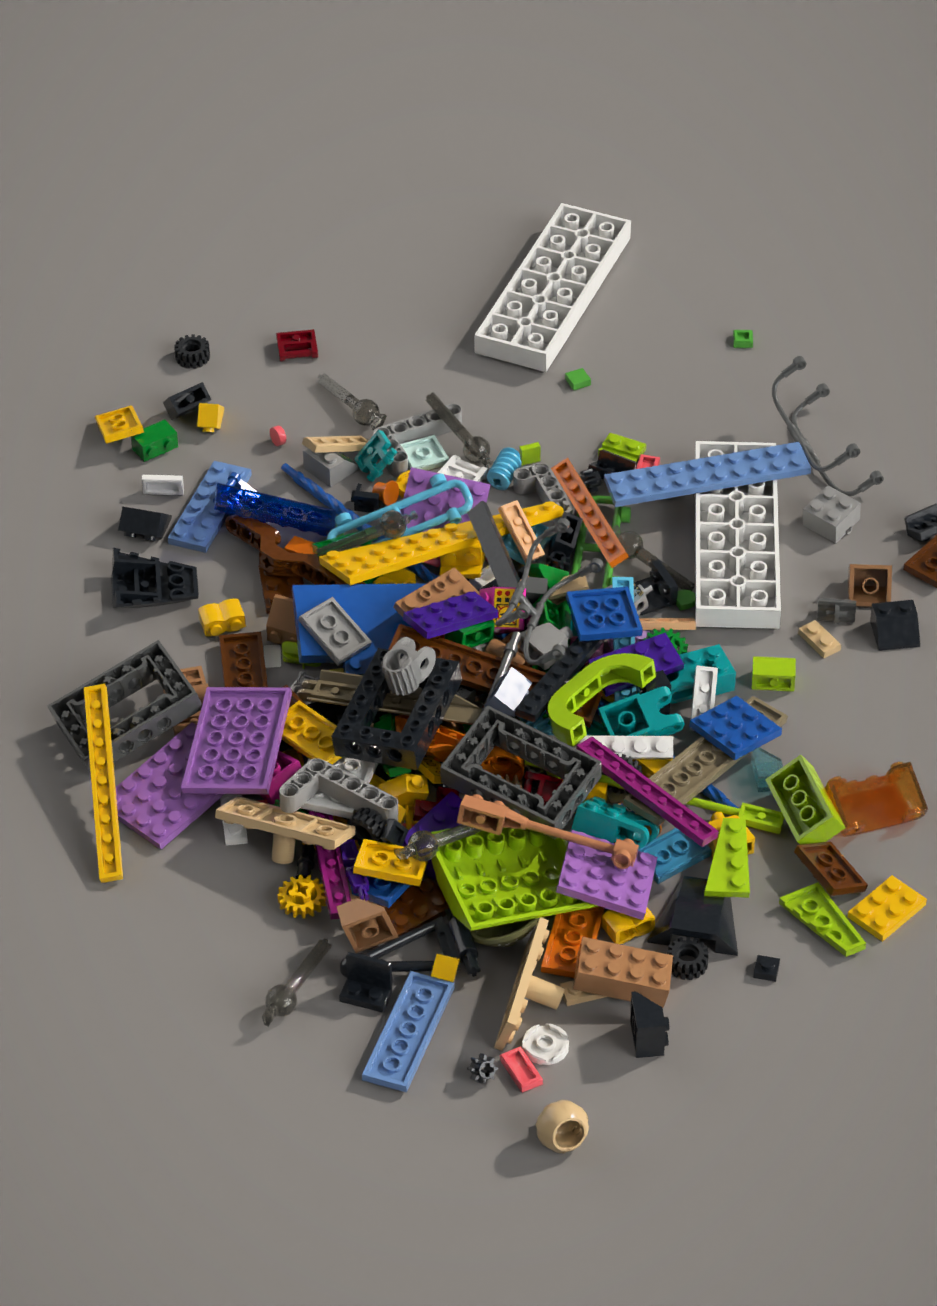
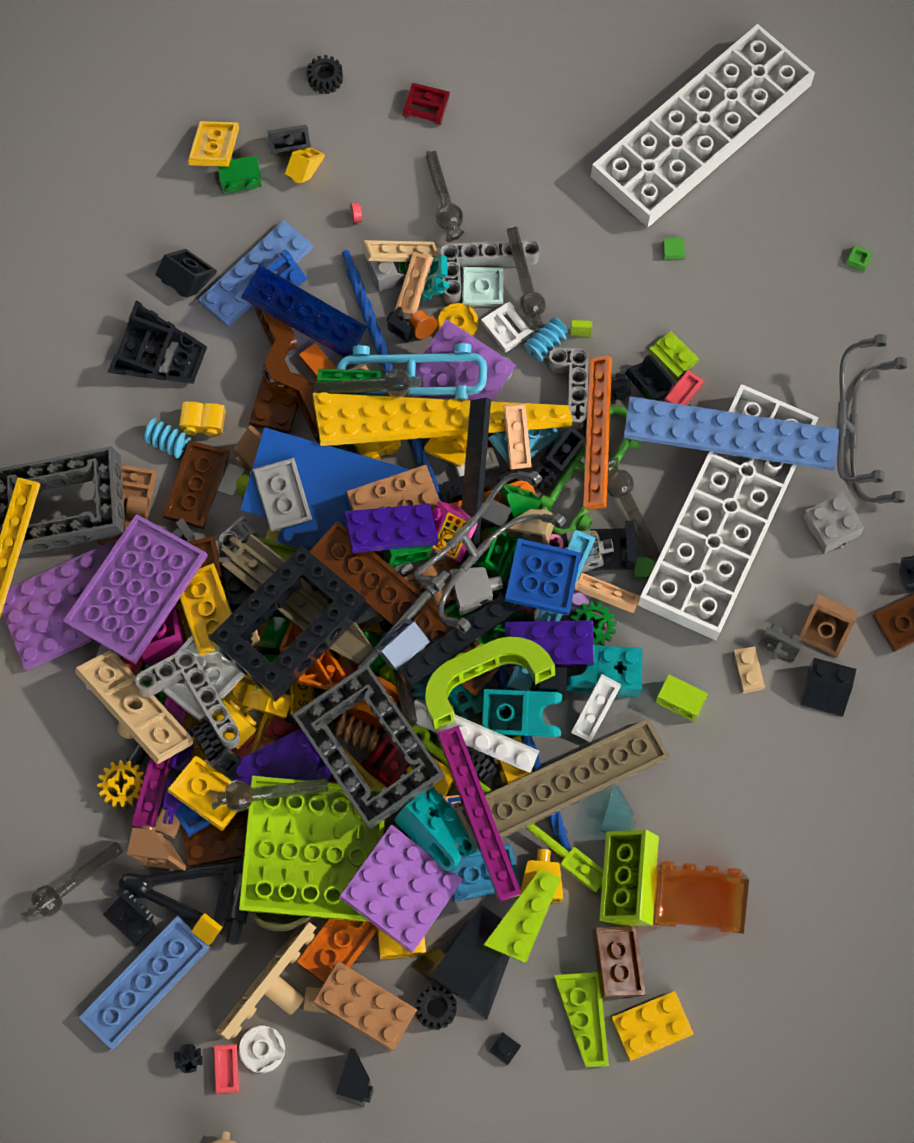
camera: 20 degrees right, 25 degrees up
(162, 484) = (222, 233): white tile -> none
(196, 640) = (165, 439): none -> medium azure piece
(362, 462) = (414, 283): none -> light nougat tile
(405, 673) = (312, 599): light grey piece -> none
(495, 816) = (318, 792): nougat bar -> none
(735, 727) = (608, 757): blue plate -> none

